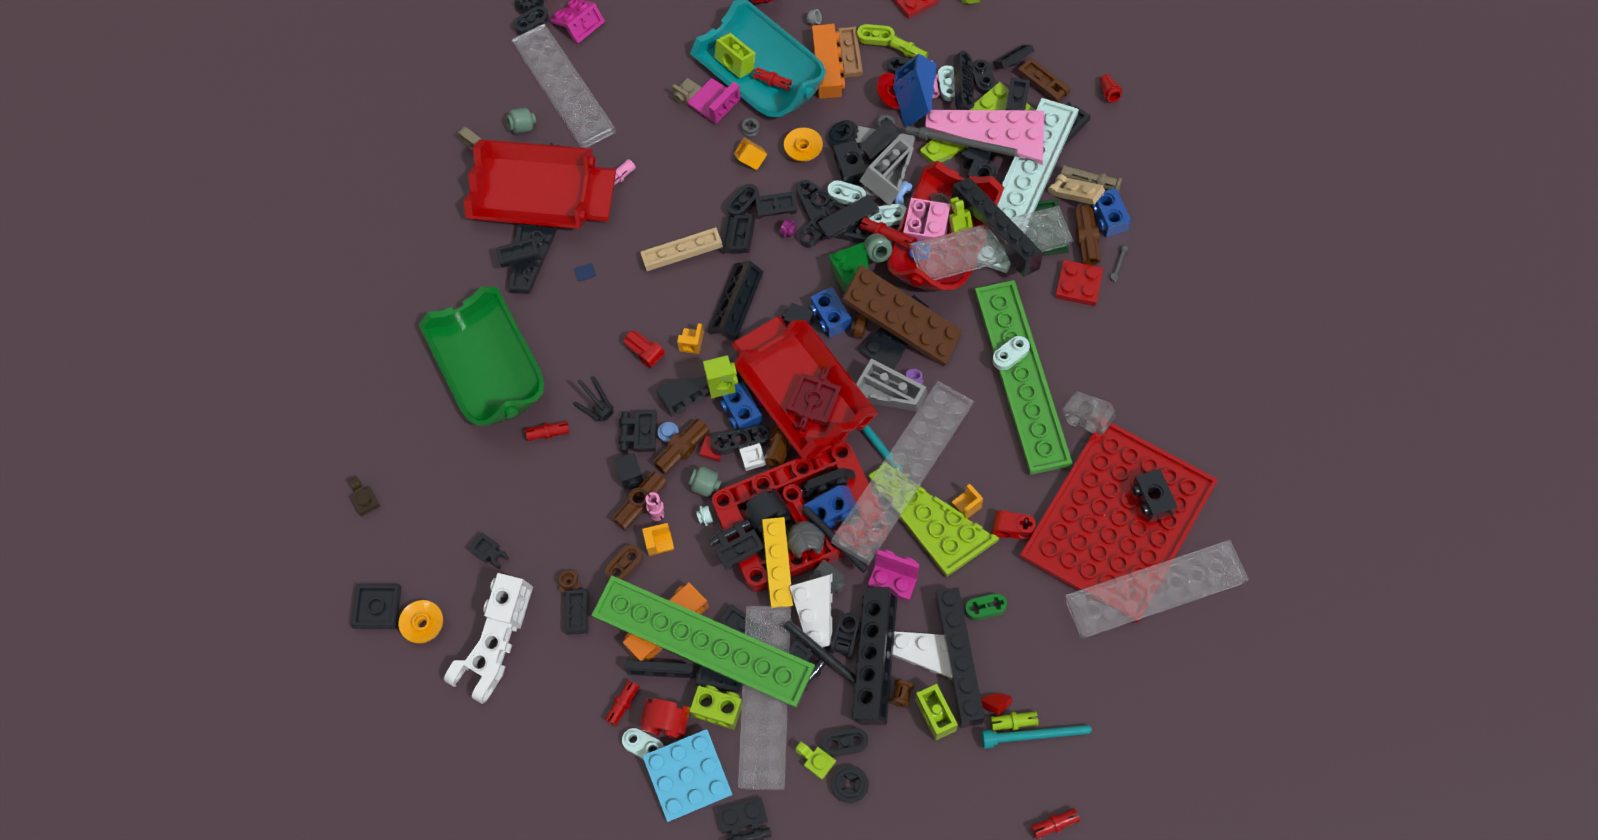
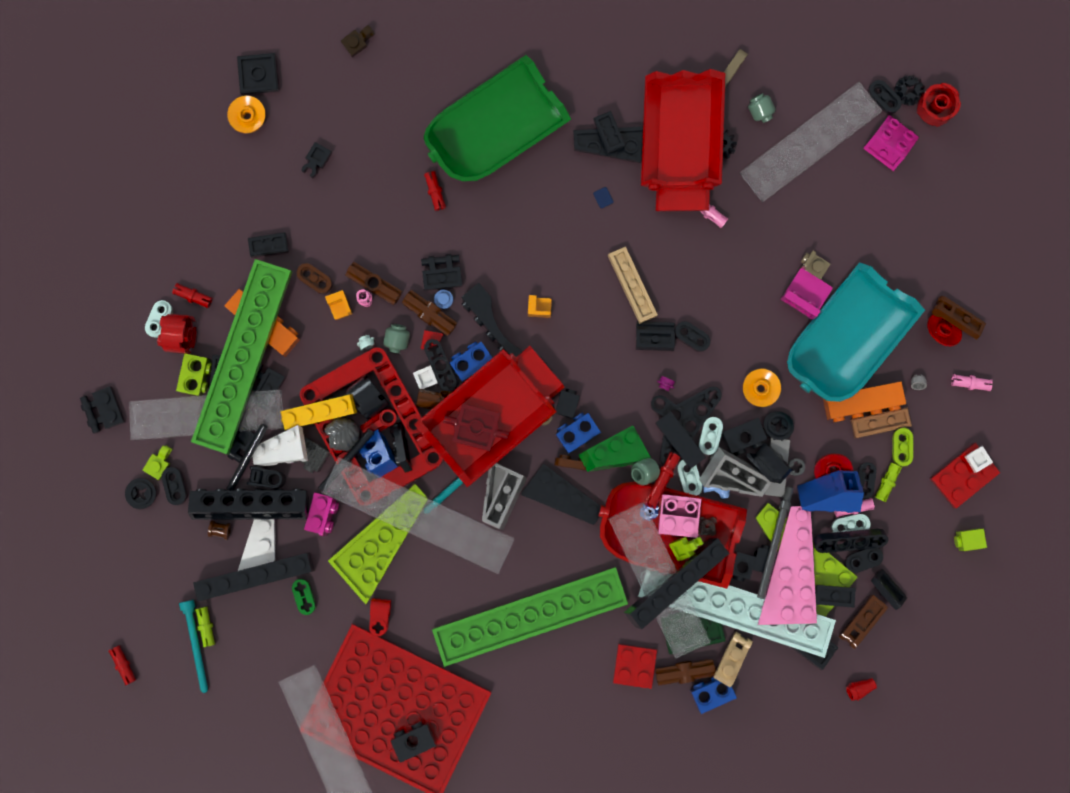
camera: 75 degrees right, 20 degrees up
(501, 620) = (251, 182): white brick -> none
(568, 575) = (290, 230): reddish brown plate -> none
(602, 410) = (459, 235): black plant -> none
(629, 471) = (400, 270): black brick -> none
(647, 351) = (522, 268): red piece -> none
(660, 669) = (222, 321): black tile -> none
(687, 775) = (135, 358): medium azure plate -> none
(720, 376) = (487, 339): lime brick -> none
(735, 55) = (856, 307): lime brick -> none
(738, 300) = (583, 345): black fence -> none
(738, 550) = (327, 377): black plate -> none
(745, 125) = (775, 329): dark grey bush -> none
(750, 153) = (746, 337): light orange panel -> none
(772, 79) = (836, 349): red pin -> none
(776, 204) = (687, 369): black hinge -> none
(901, 315) = (571, 500): reddish brown plate -> none
(915, 375) = (521, 516): medium lavender plate -> none
(936, 712) = (202, 560): lime brick -> none
(968, 502) = (397, 574): light orange panel -> none
(996, 702) = (219, 610): red tile -> none
(1012, 352) = (548, 605): light aqua plate -> none
(1089, 412) = (490, 691): clear brick -> none
(1102, 179) = (748, 683): dark tan pin -> none
(1114, 276) = (645, 699): dark grey hinge -> none

